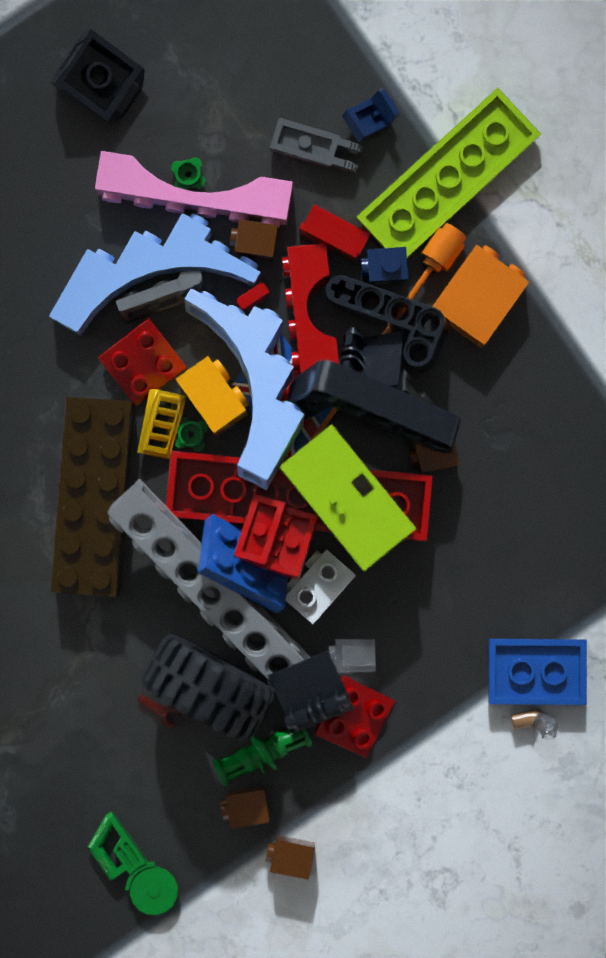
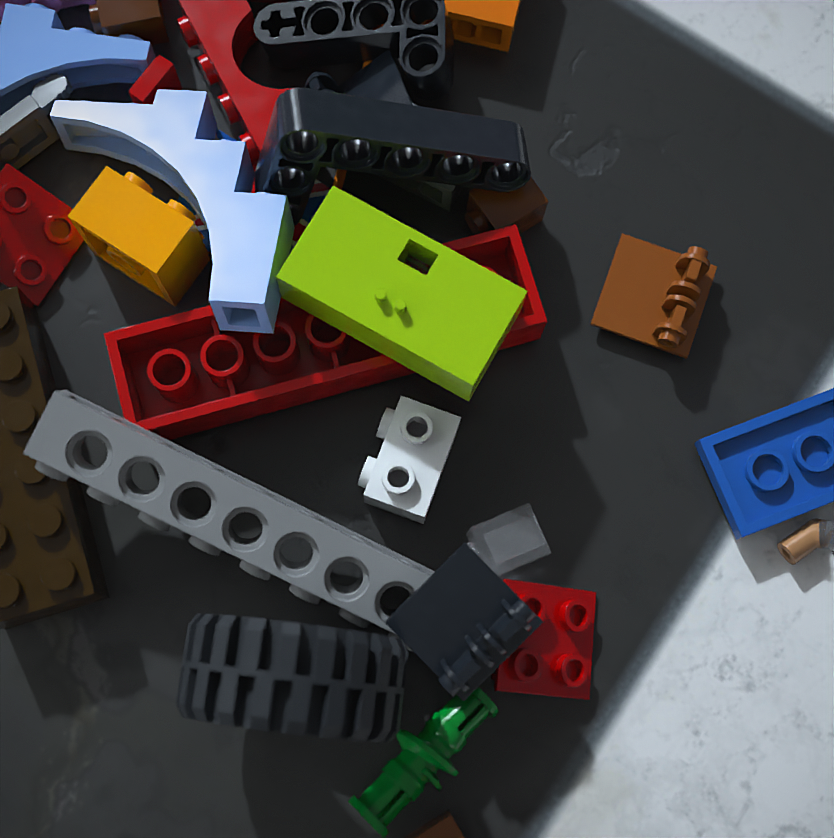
camera: 25 degrees left, 10 degrees down
(159, 709) = (233, 752): clear red hand -> none
(171, 426) = (71, 269): yellow slope -> none
(196, 442) = (124, 302): green plate -> none
(221, 566) = (279, 461): blue plate -> none
(276, 537) = (313, 396): red slope -> none
(503, 541) = (655, 294): none -> dark orange hinge

